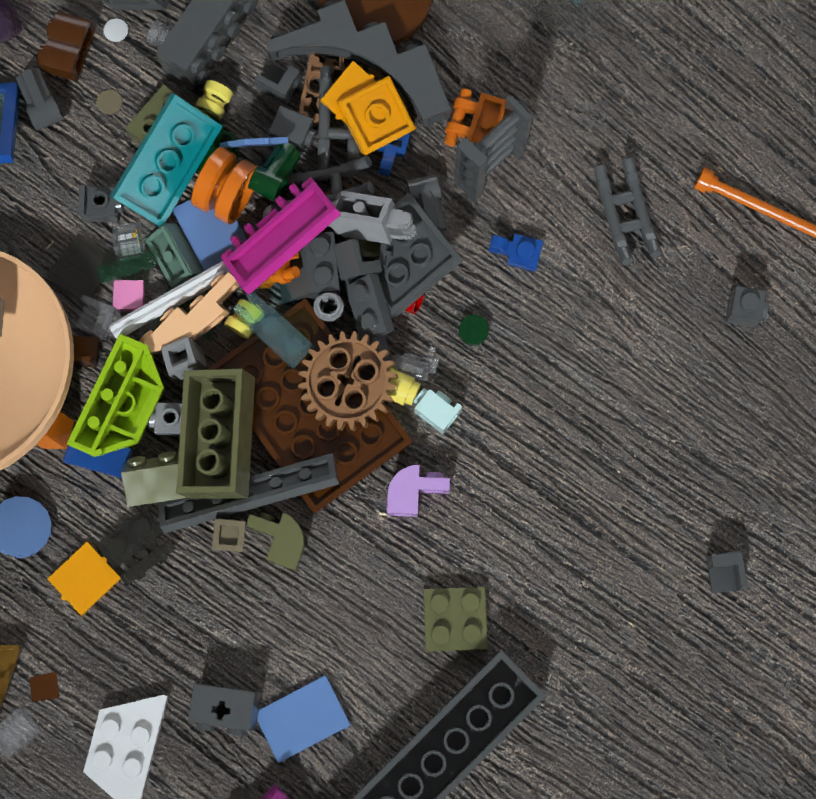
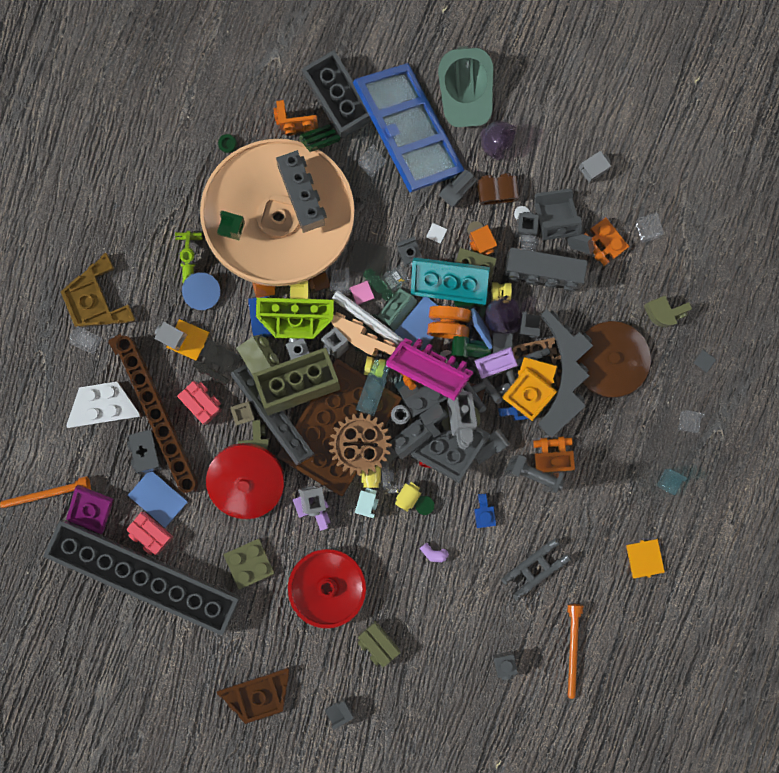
camera: 70 degrees right, 5 degrees up
(66, 599) = (170, 336): none -> light grey brick
(83, 380) = (300, 290): none -> light yellow panel
(89, 157) = (436, 233): none -> white sticker
(129, 94) = (482, 241): none -> orange brick
(133, 24) = (527, 224): none -> dark grey brick
(159, 668) = (150, 407): none -> reddish brown beam
(185, 595) = (199, 402): none -> coral brick
(248, 110) = (503, 315): none -> clear purple cylinder
(311, 143) = (496, 362): none -> lavender tile
(330, 573) = (245, 481): none -> red dish
(348, 751) = (149, 533): none -> coral brick
(403, 472) = (318, 504): none -> light grey brick
(451, 347) = (408, 496): none -> light yellow brick
(537, 515) = (326, 588): none -> red dish
(551, 345) = (434, 556): none -> lavender arm
(648, 474) = (378, 644): none -> olive brick
(656, 683) = (257, 696): none -> reddish brown wing
(671, 60) = (645, 558): none -> light orange piece

